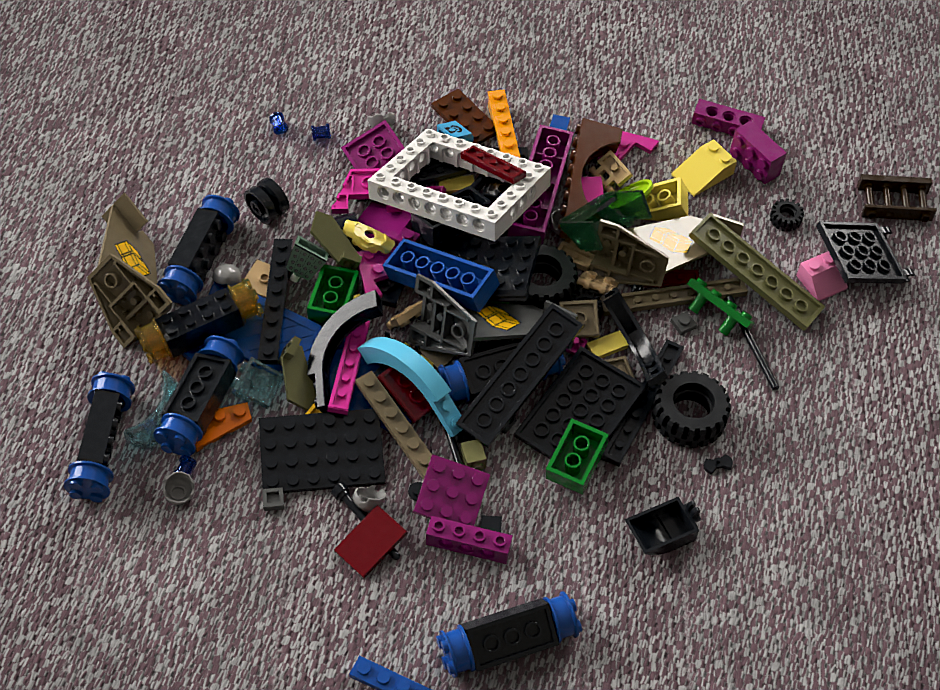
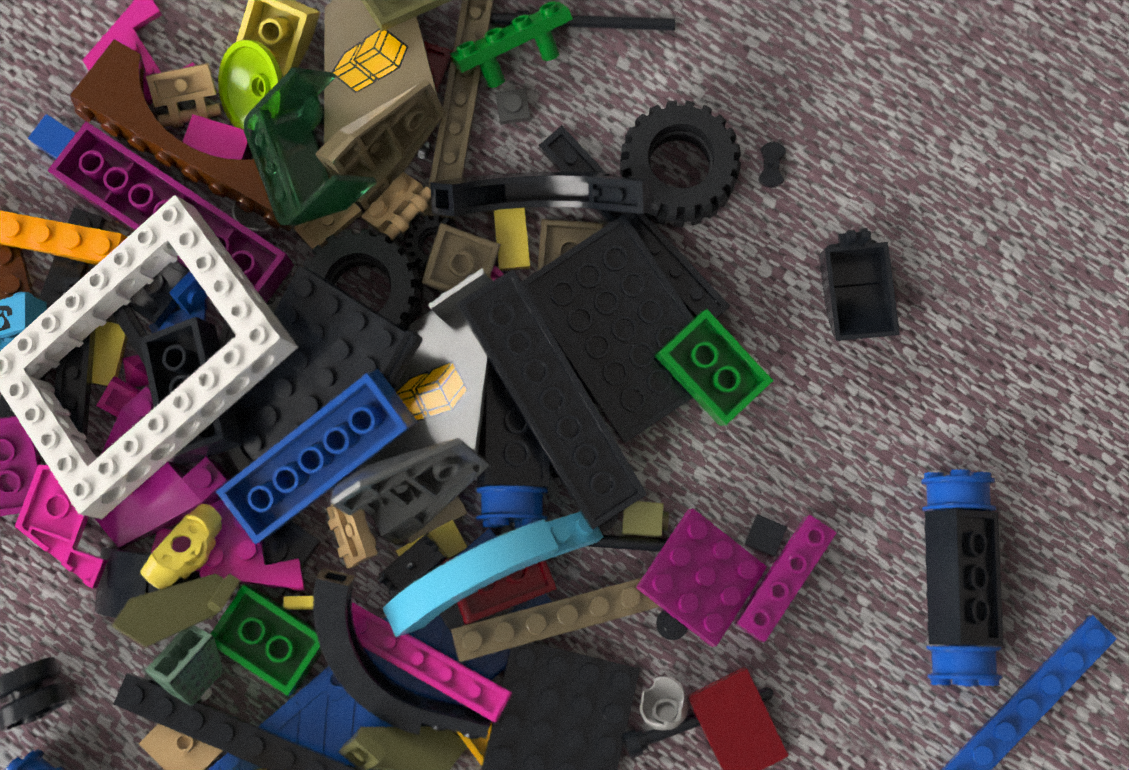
camera: 65 degrees left, 25 degrees up
(493, 164) = (135, 289): dark red tile -> none

